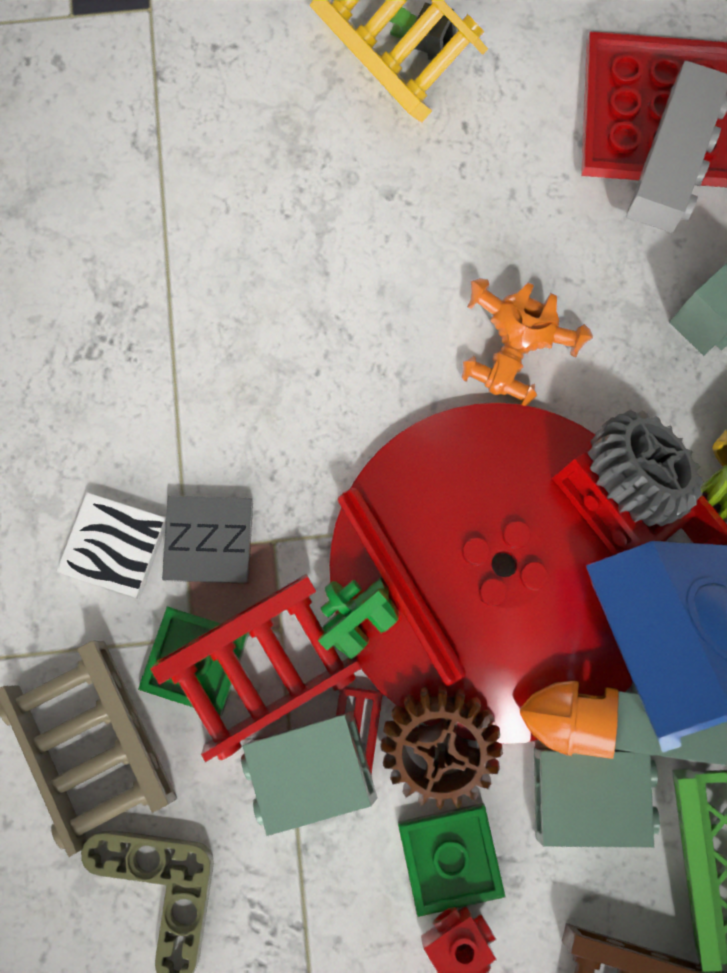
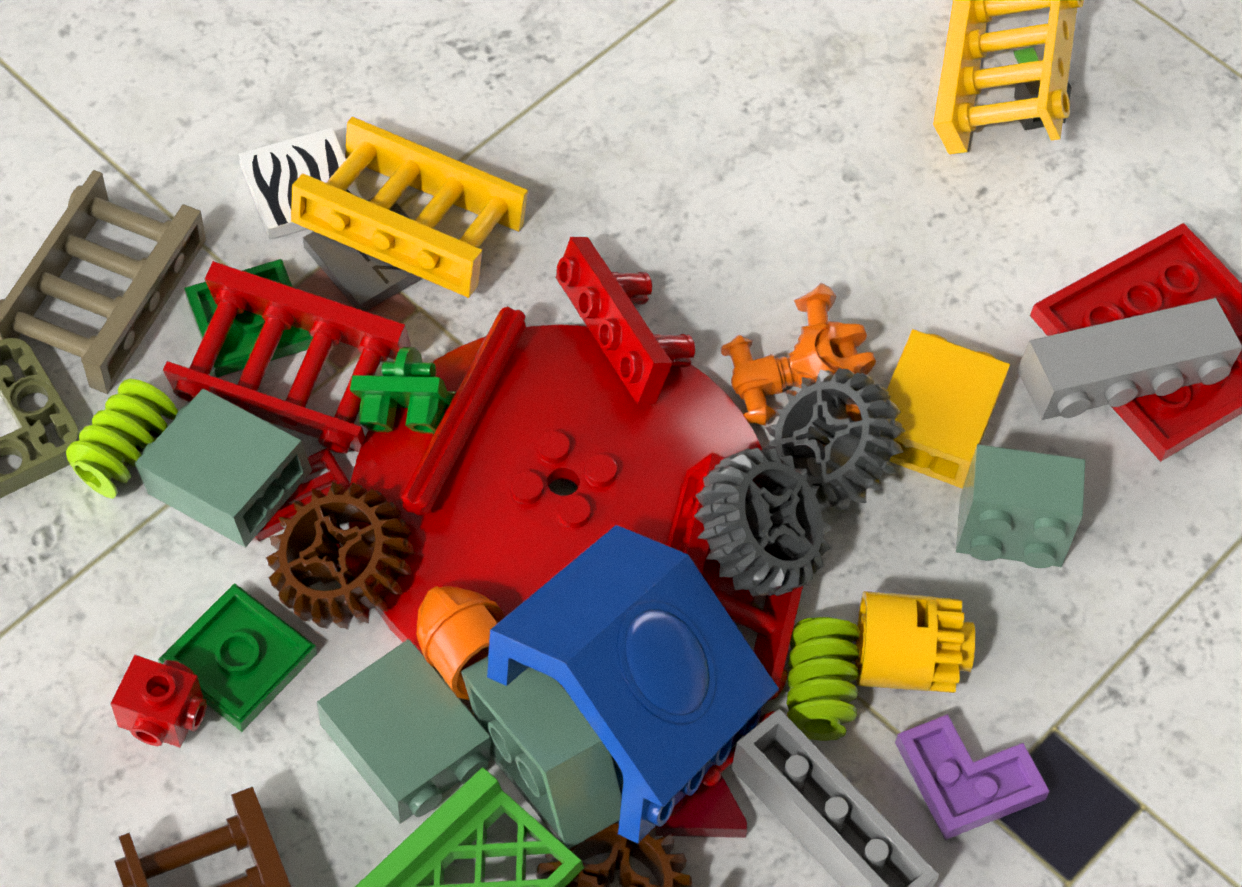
camera: 45 degrees right, 20 degrees down
(193, 533) = (393, 237): none -> yellow fence
(231, 826) = (117, 433): none -> lime piece
(418, 437) = (607, 308): none -> red plate
(610, 283) = (944, 404): none -> yellow brick
(621, 393) = (848, 451): none -> dark grey gear

